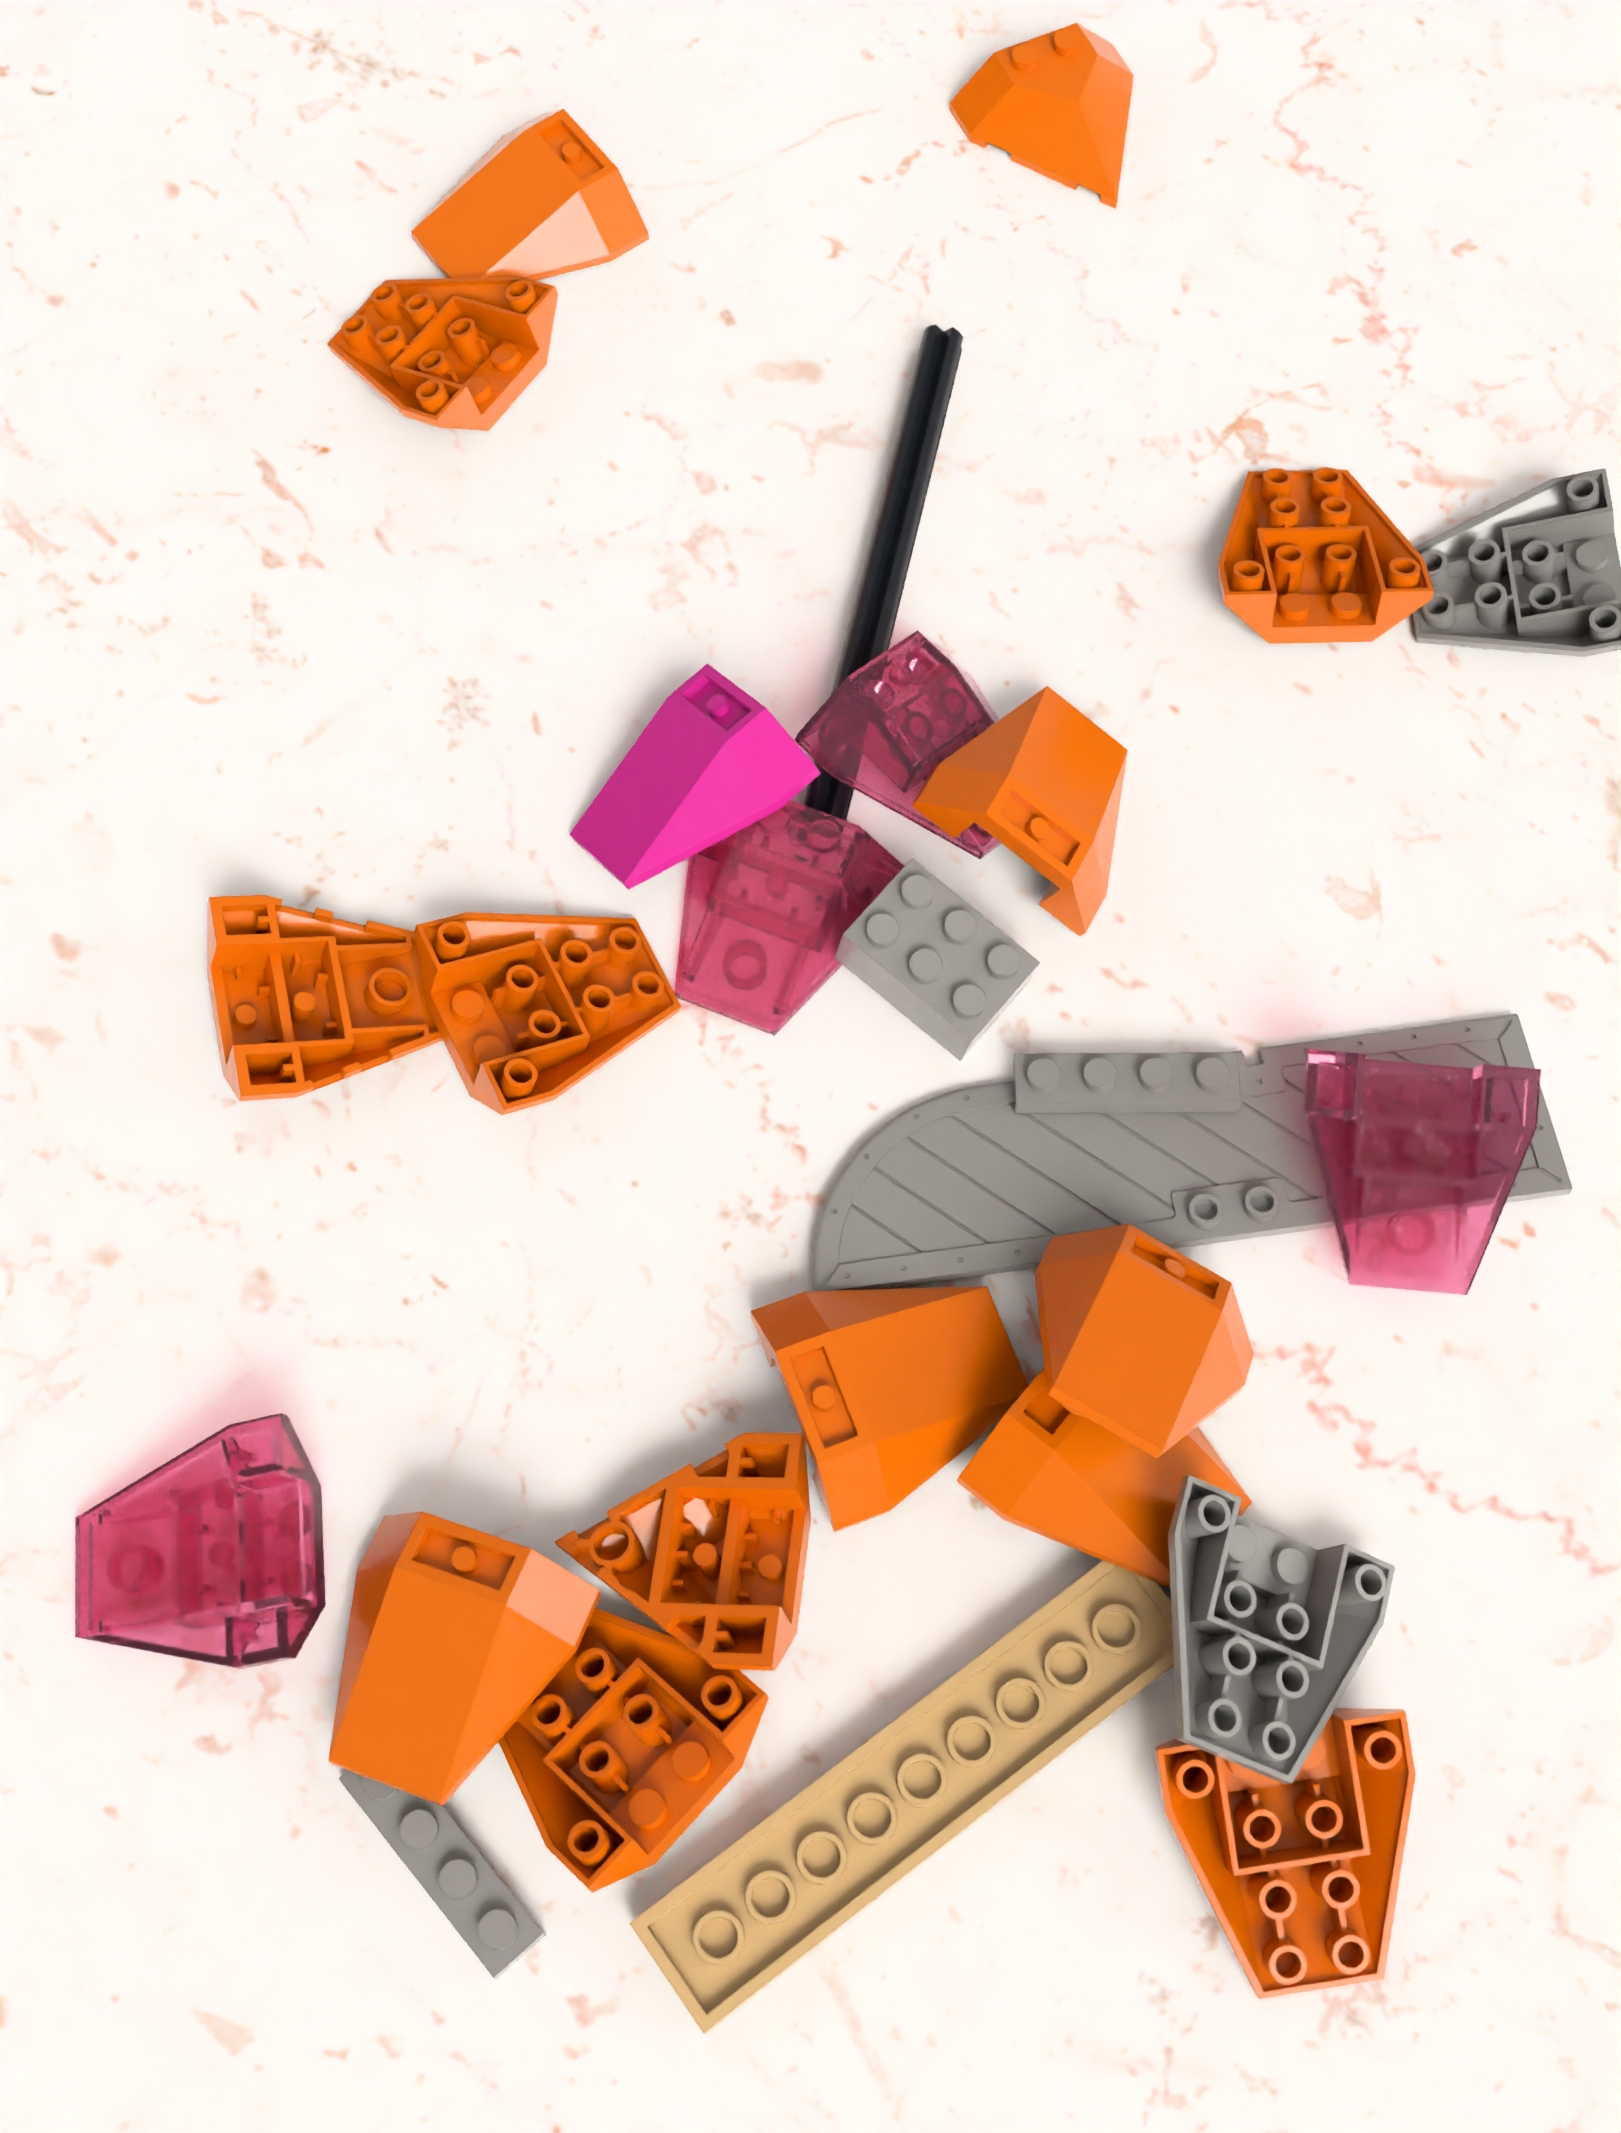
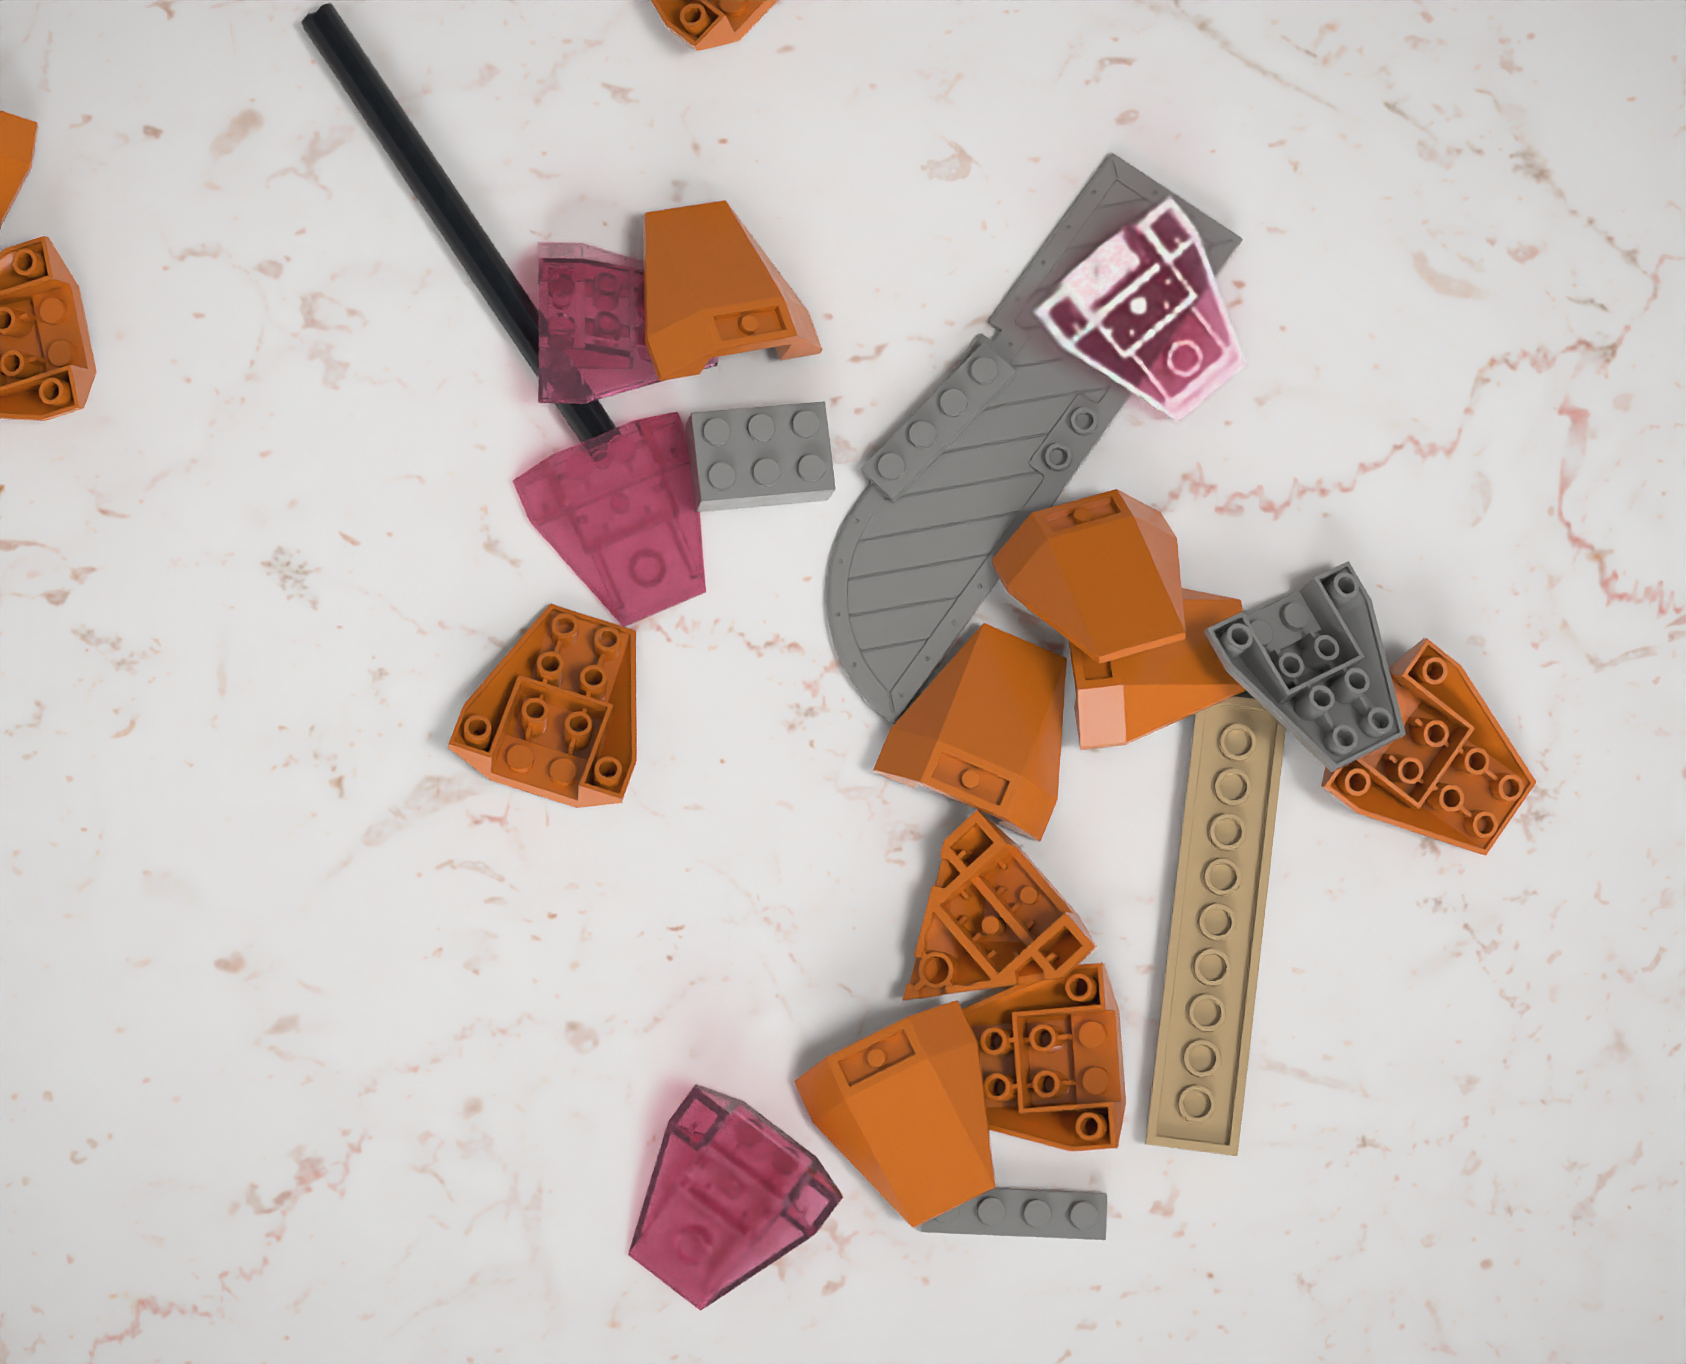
camera: 45 degrees left, 15 degrees up
(309, 996) = (424, 846): orange wedge -> none
(692, 779) = (499, 490): dark pink wedge -> none

